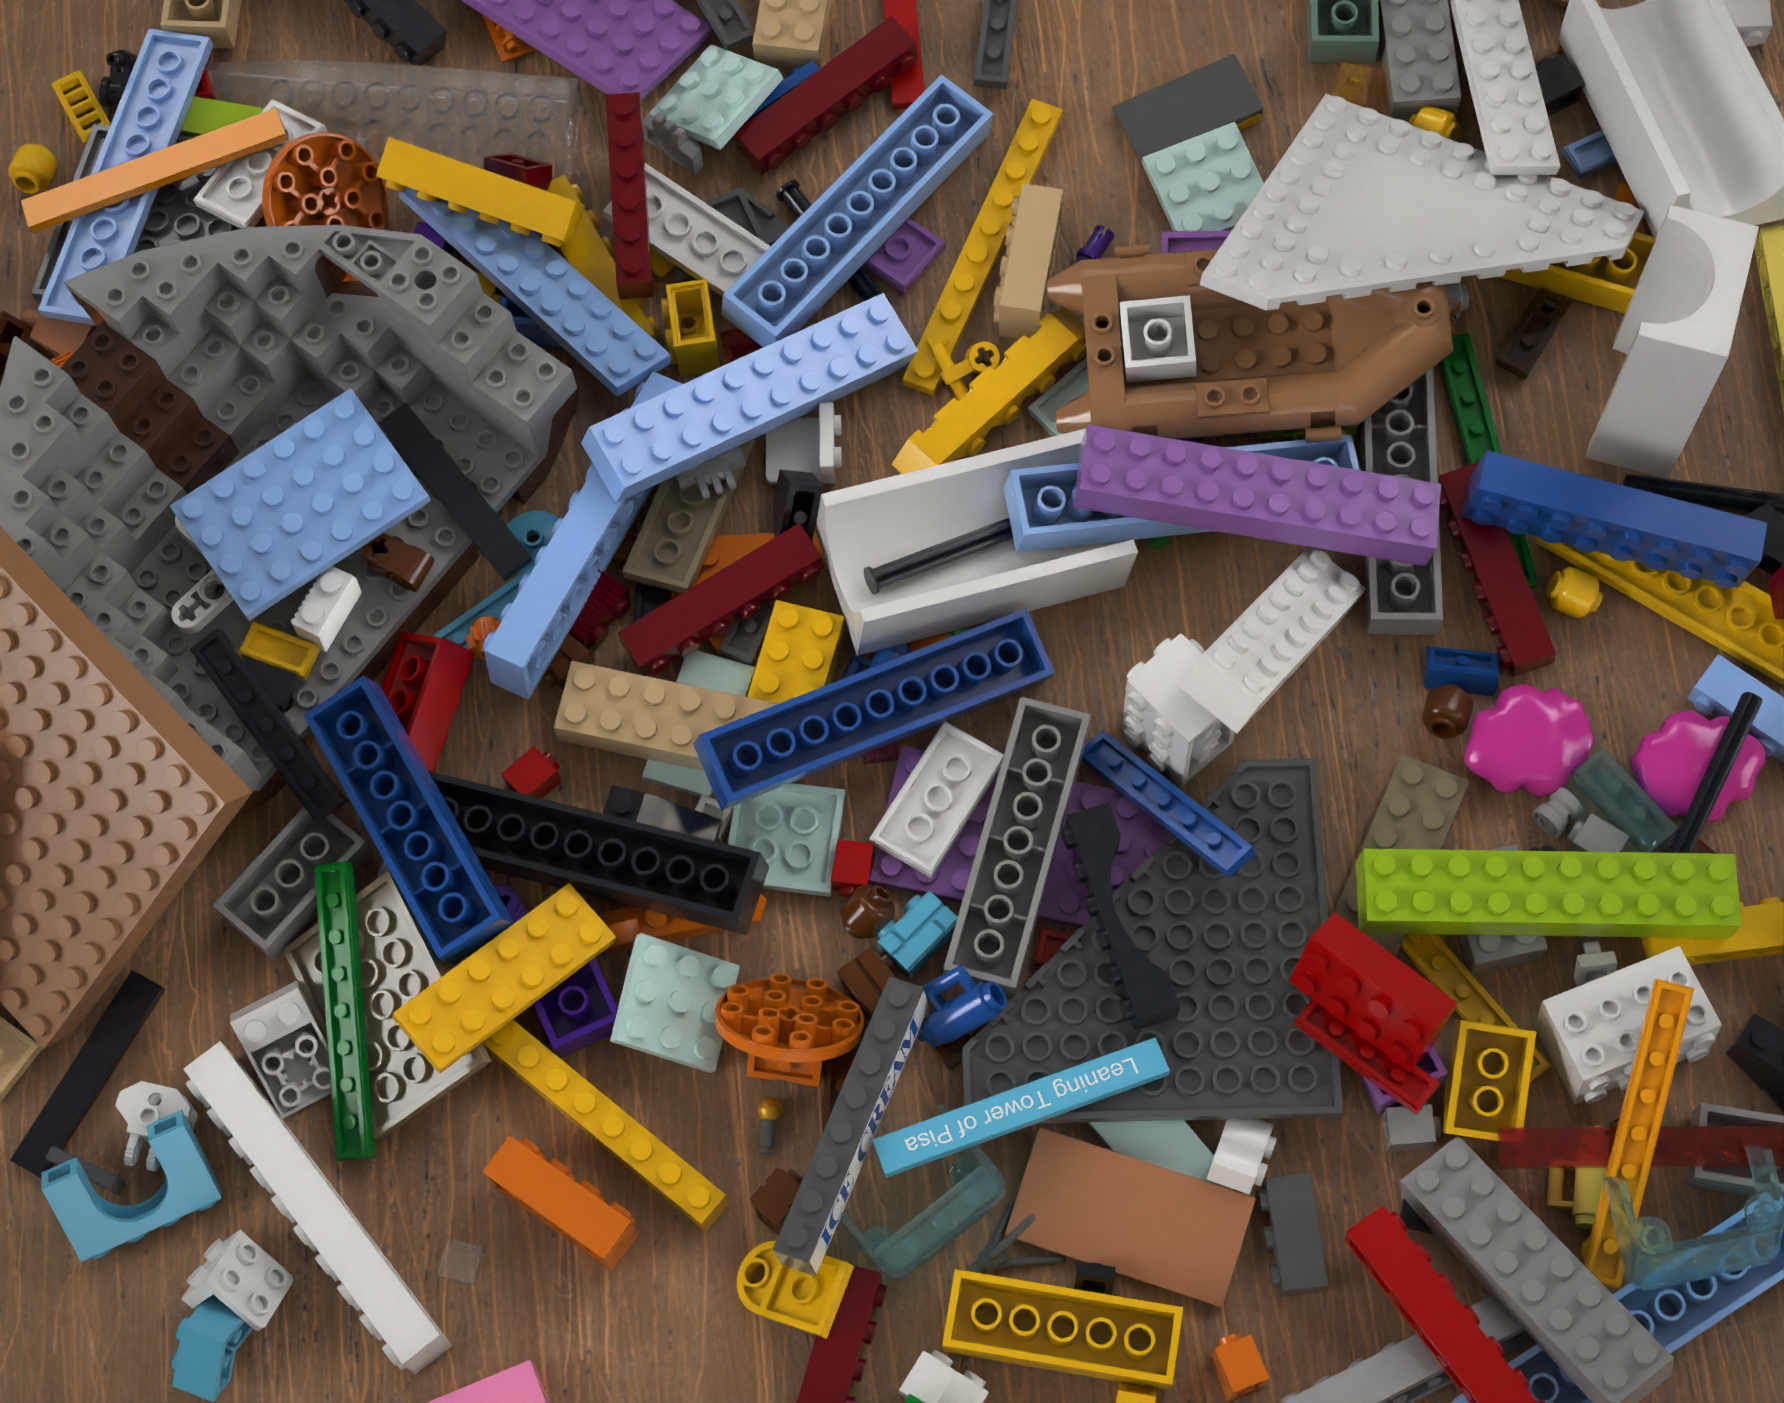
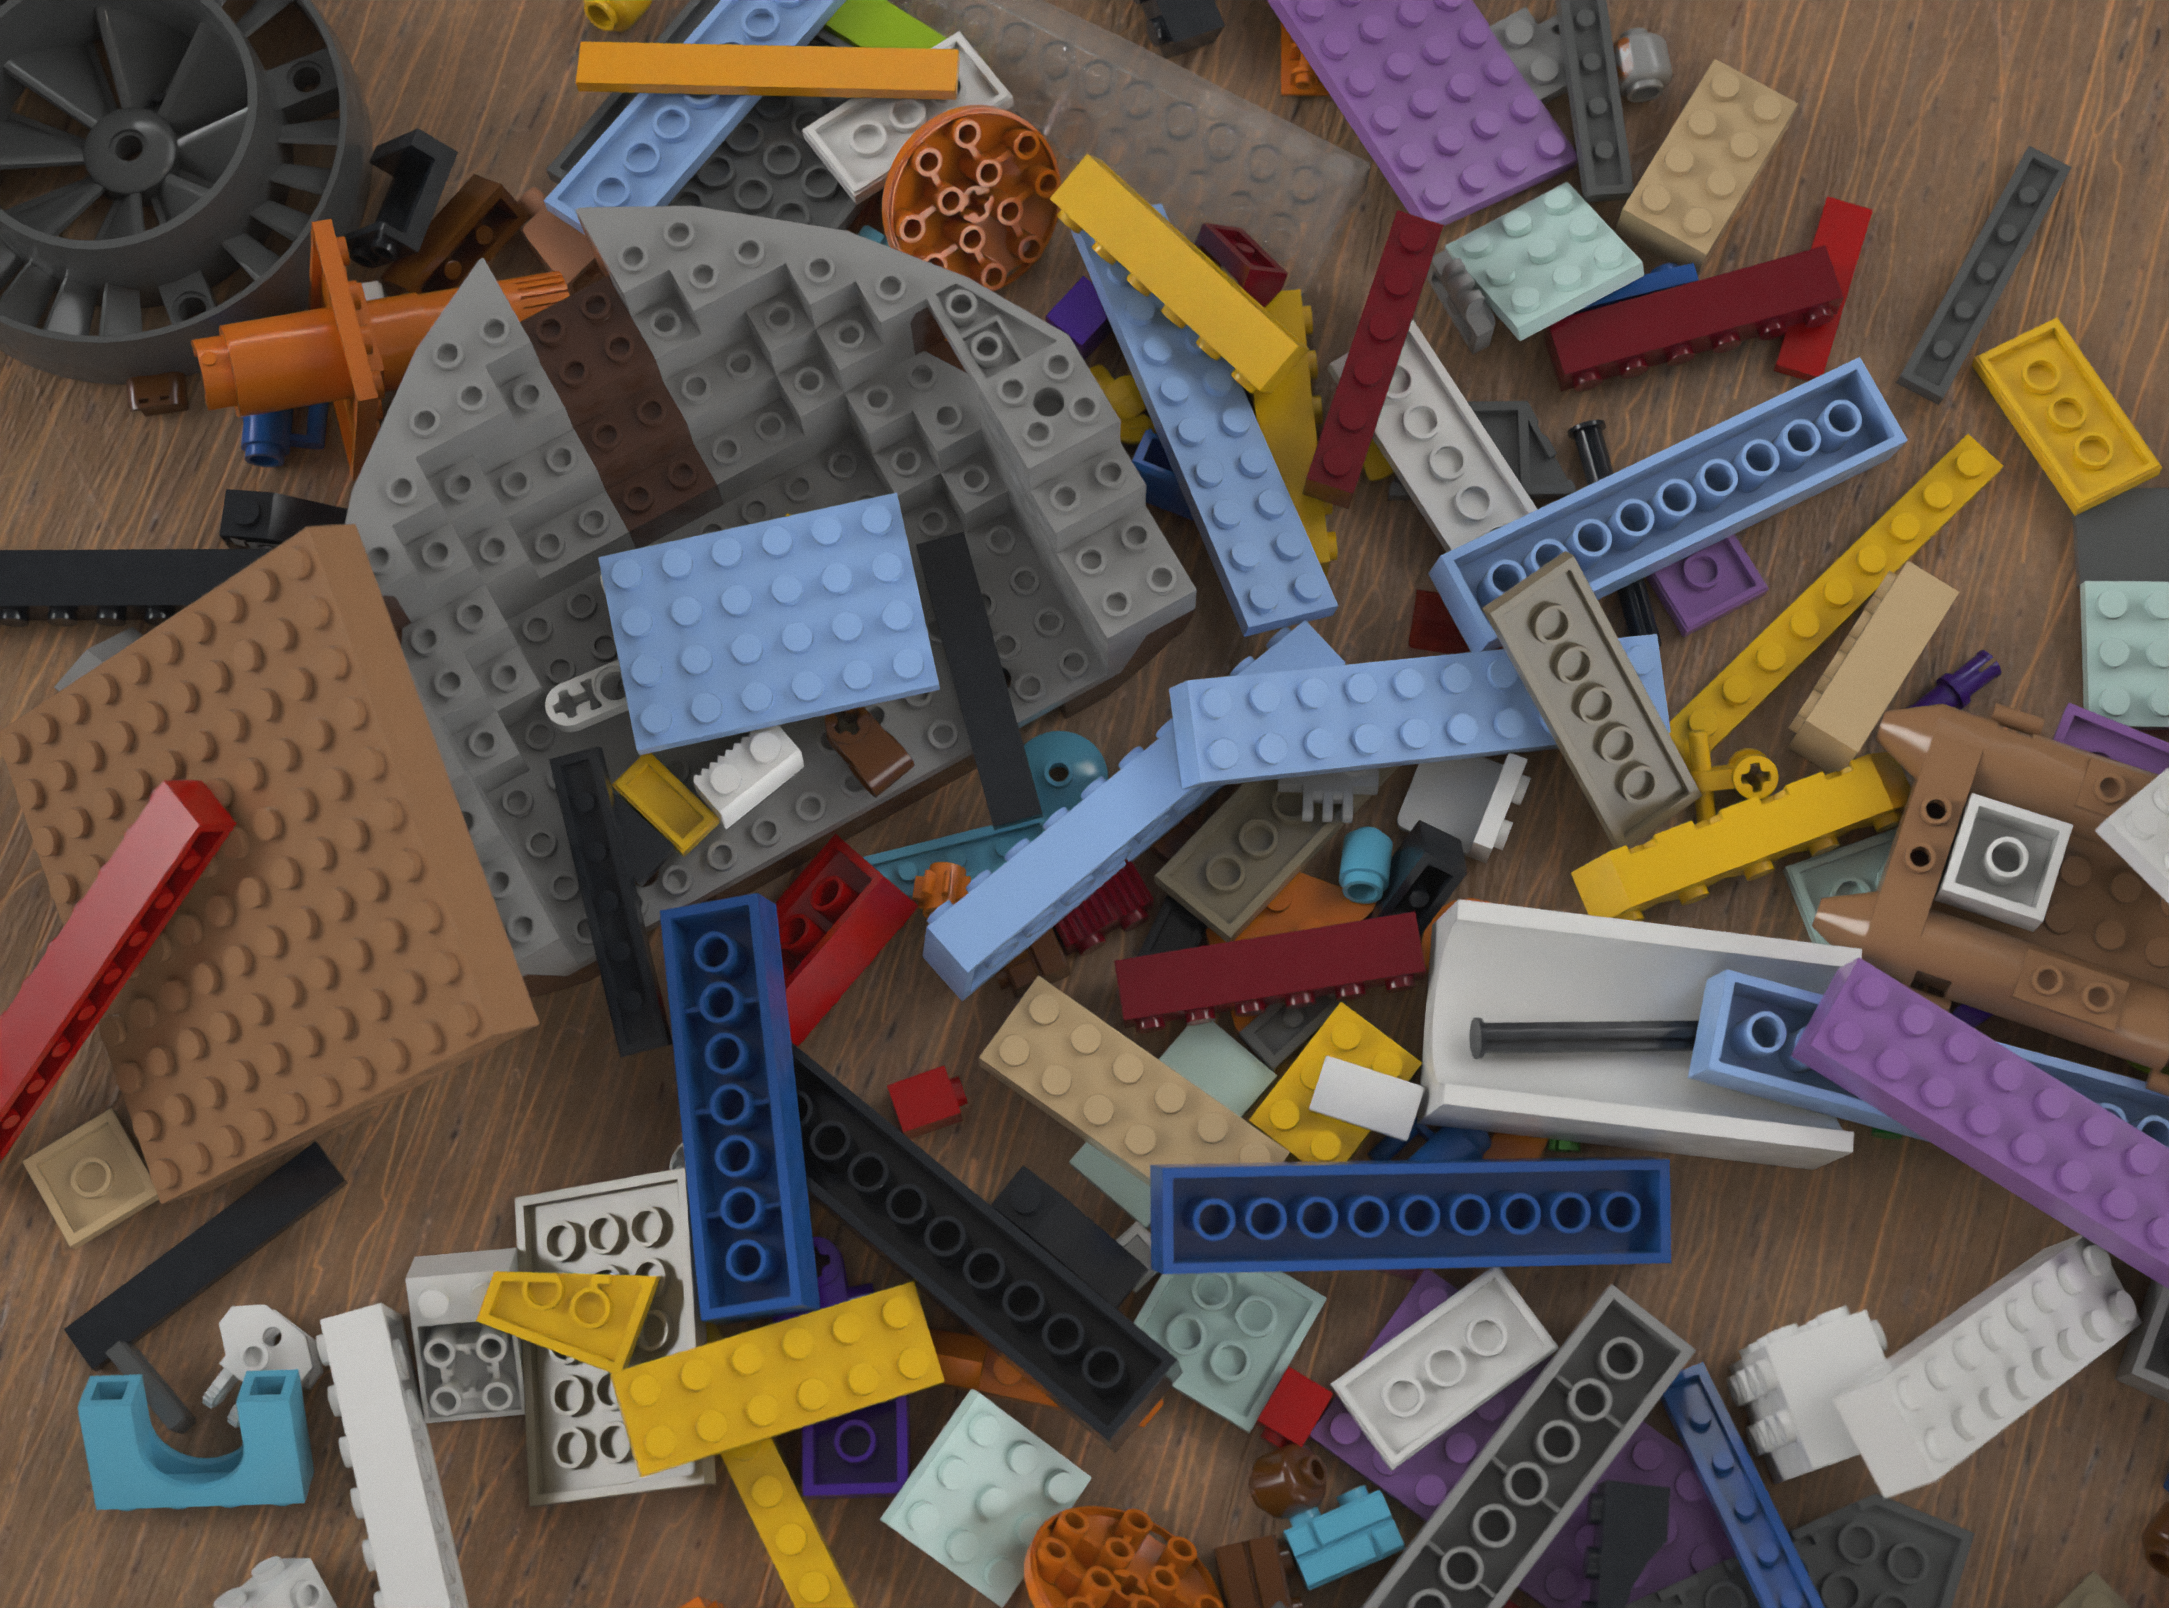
camera: 20 degrees right, 5 degrees up
(278, 889) = (561, 1115): light grey brick -> none
(344, 1011) = (541, 1372): green tile -> none
(353, 995) = (572, 1313): none -> yellow wing
(692, 348) = (1376, 597): yellow piece -> none
(757, 512) = (1365, 865): none -> medium azure brick
(816, 648) = (1366, 1098): none -> white slope
(857, 344) = (1592, 700): none -> dark tan plate
(1089, 63) = (2066, 416): none -> yellow tile

